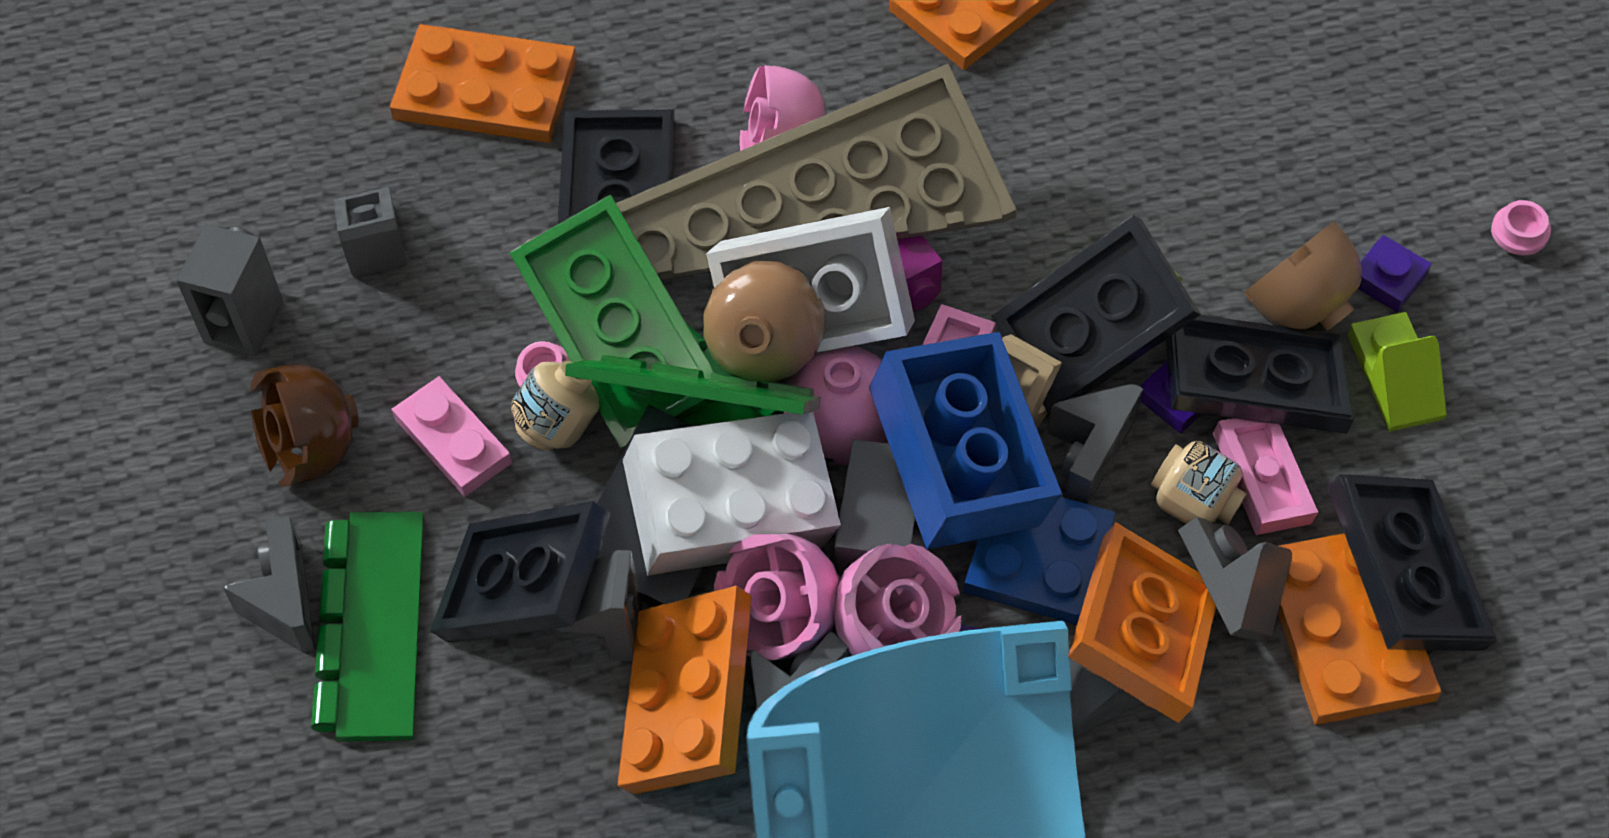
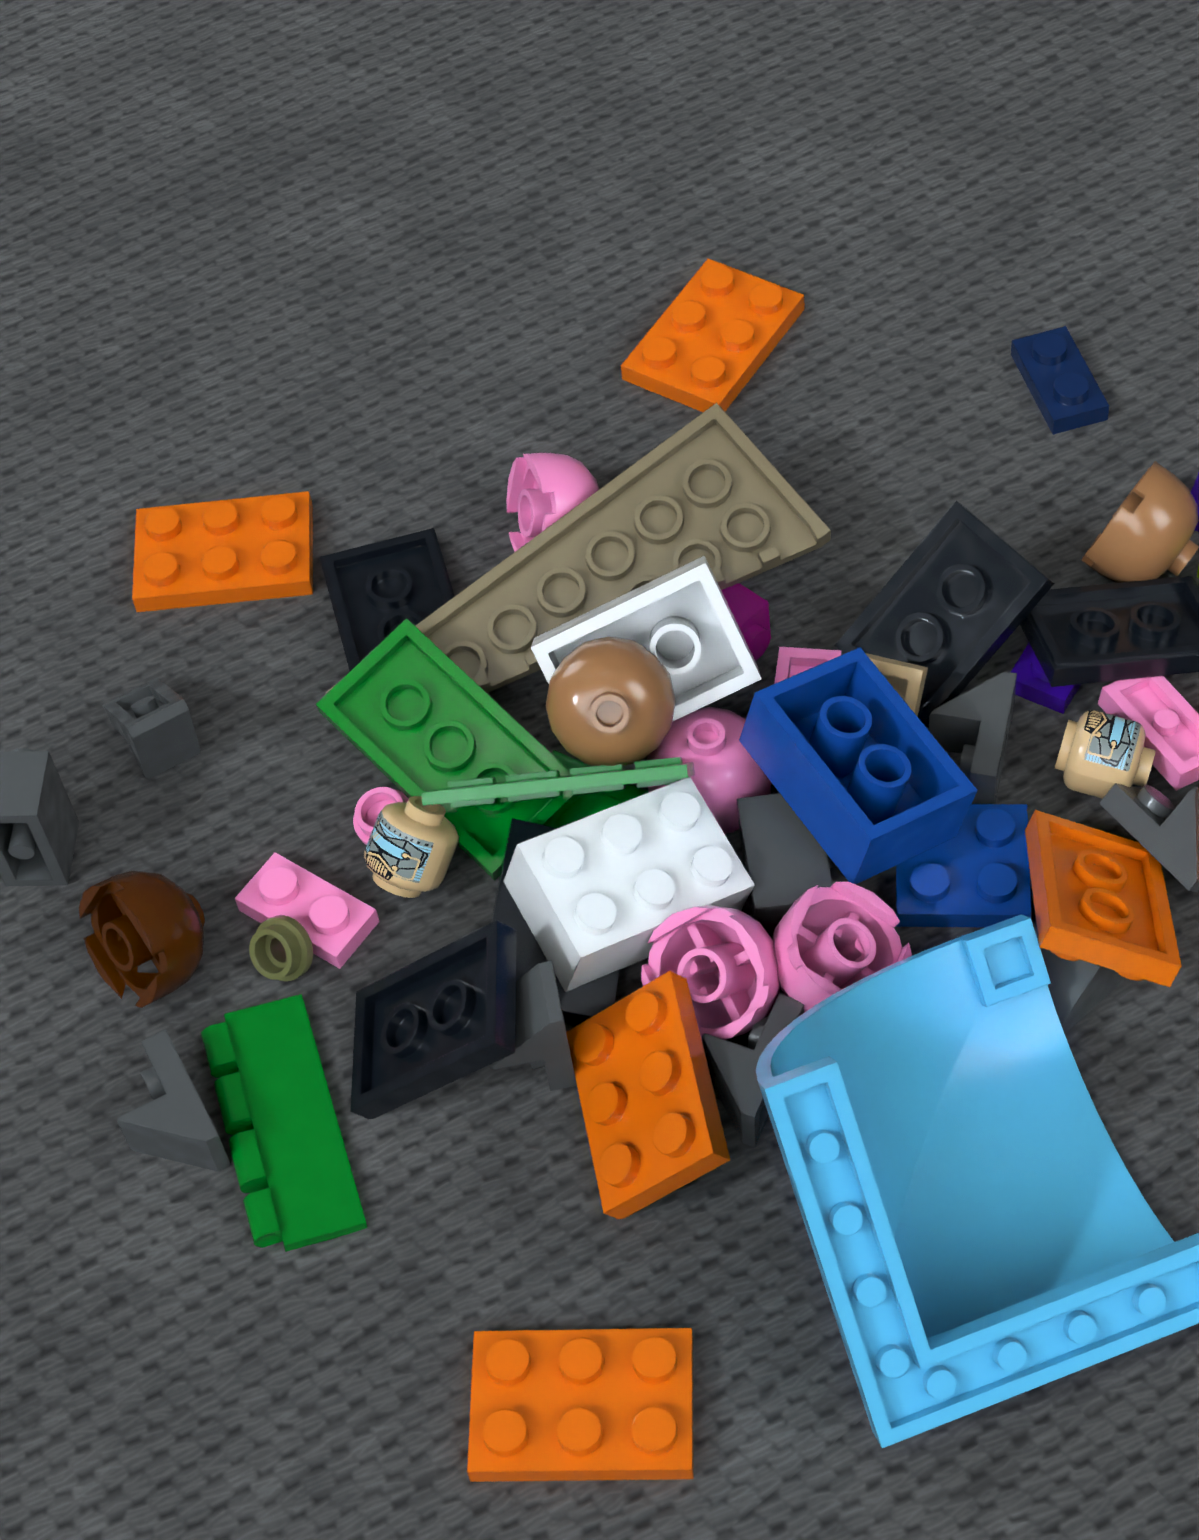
camera: 10 degrees left, 5 degrees down
(415, 467) = (281, 949): none -> olive plate
(1284, 113) = (1059, 380): none -> dark blue plate

